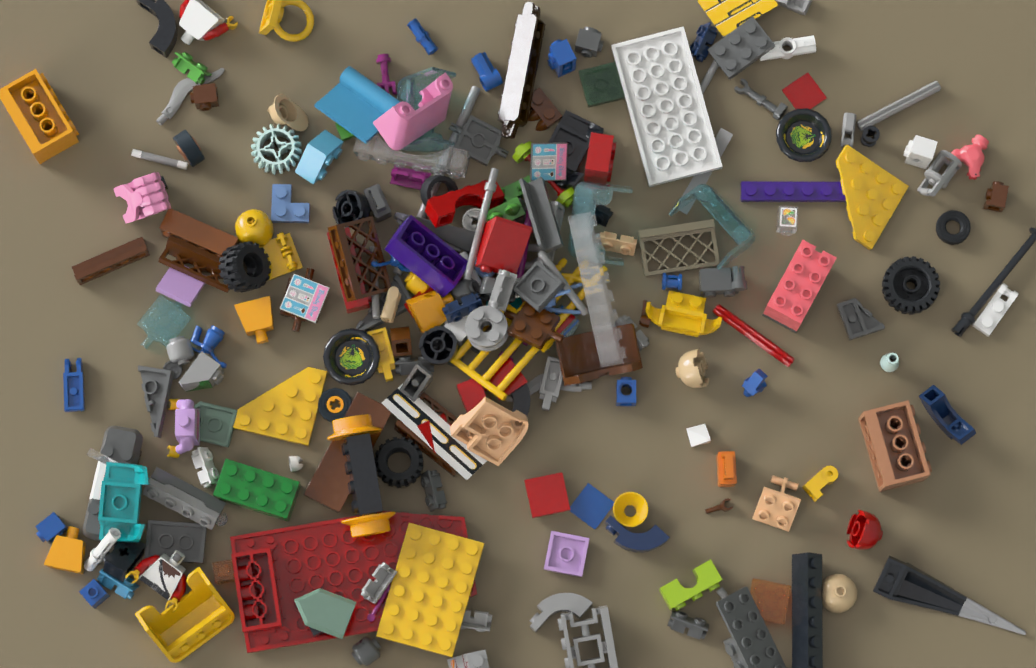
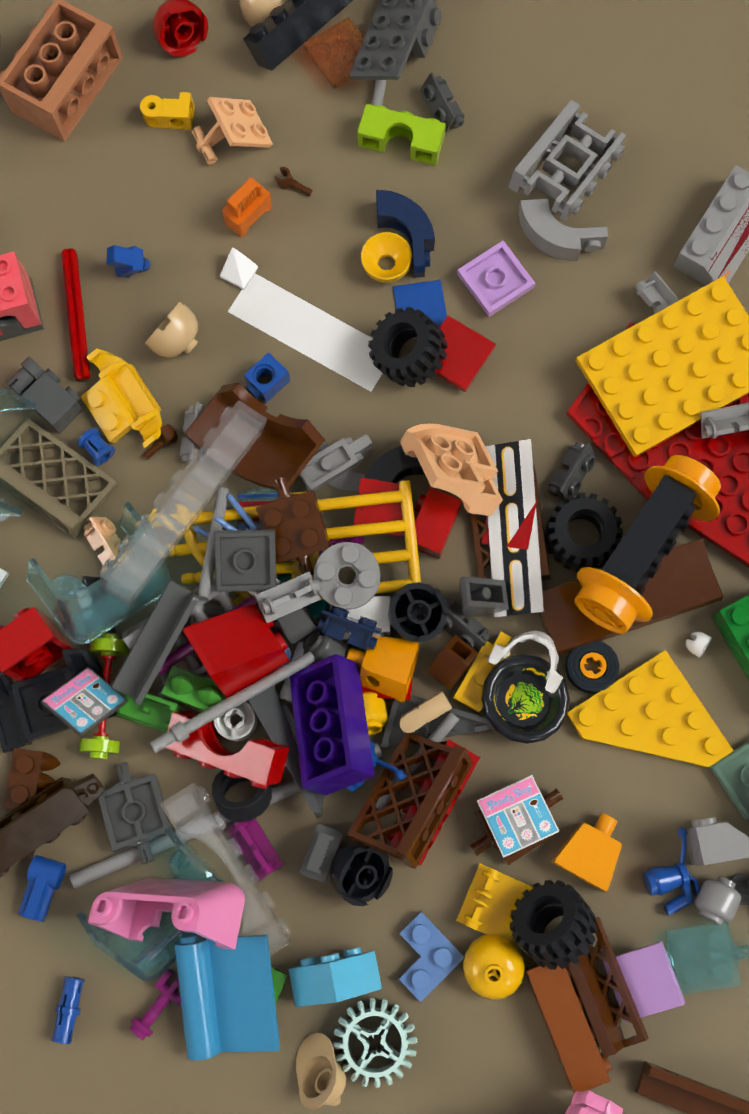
camera: 130 degrees left, 0 degrees up
(371, 389) = (553, 678): none -> white helmet
(580, 460) = (393, 334): none -> black tyre
(630, 440) = (307, 330): none -> white sticker

